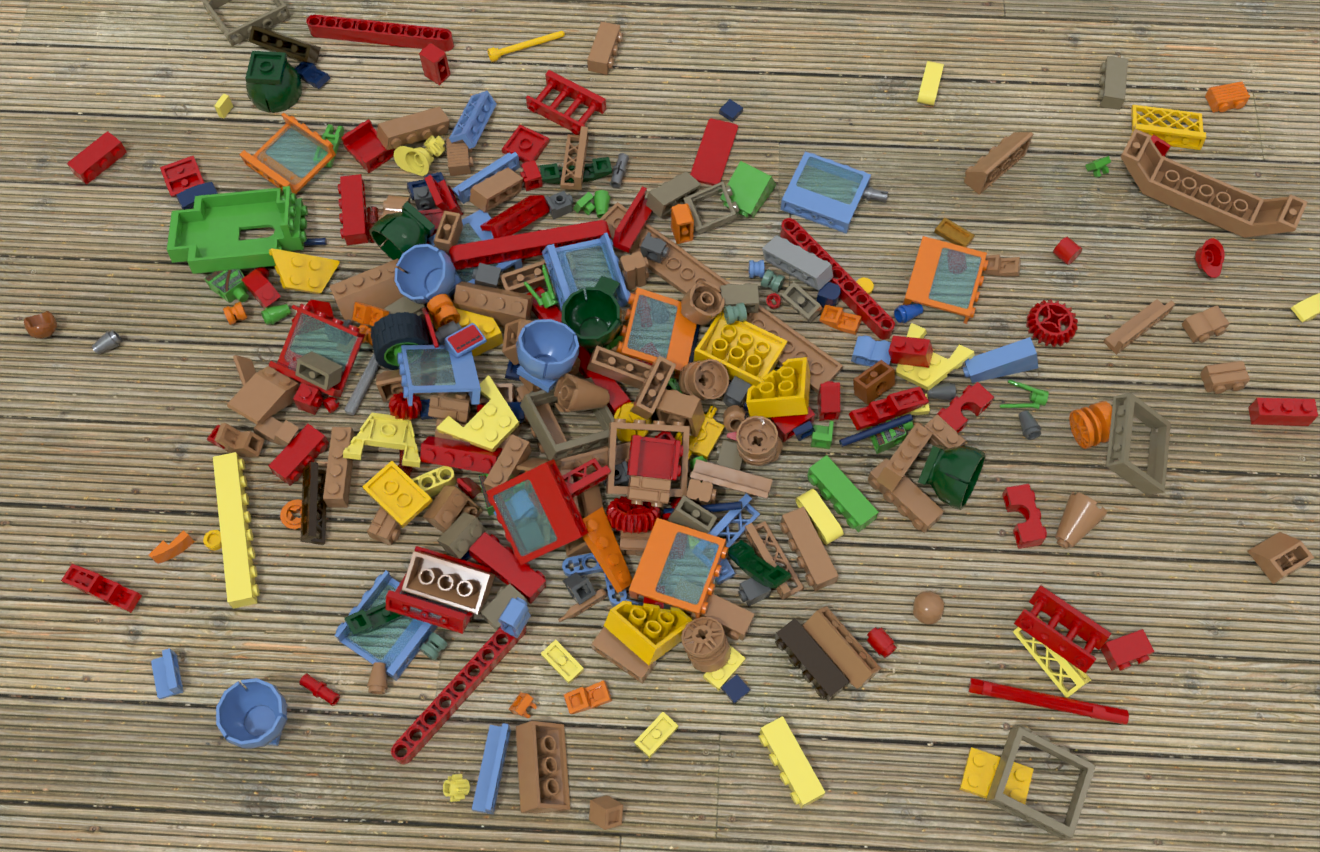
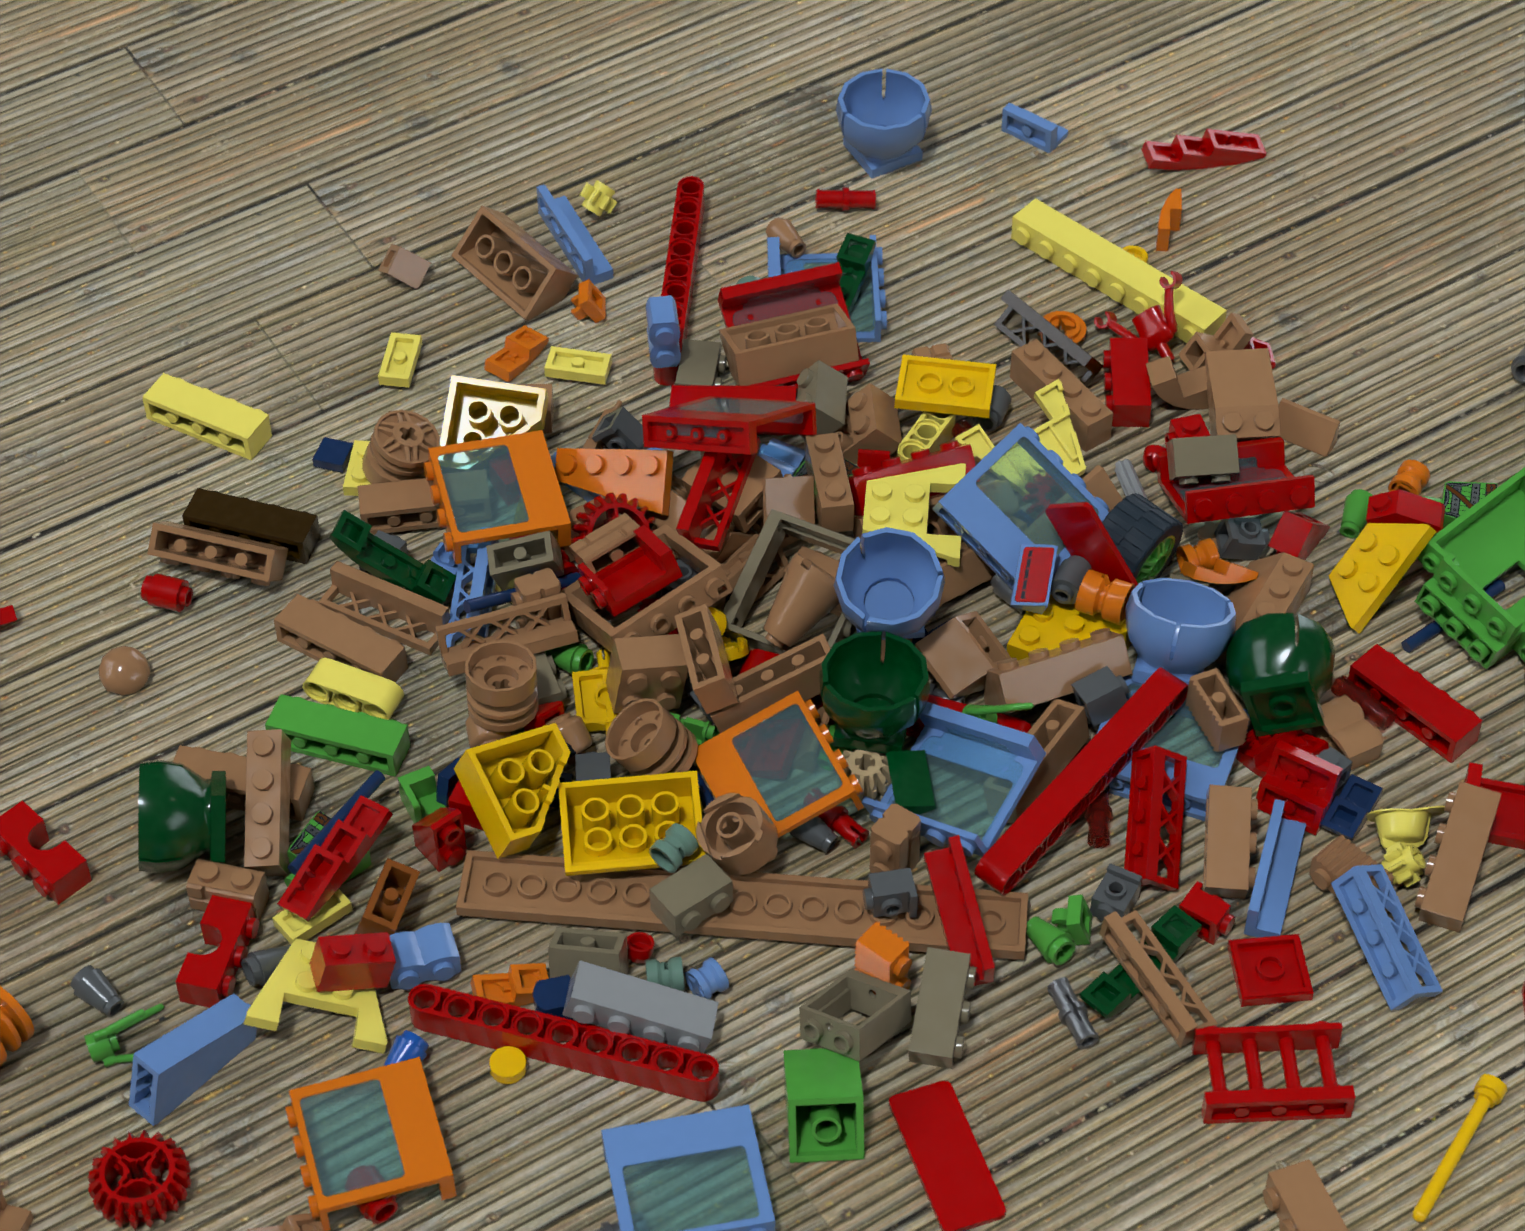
camera: 145 degrees right, 15 degrees down
(255, 478) = (1151, 323): none -> red piece

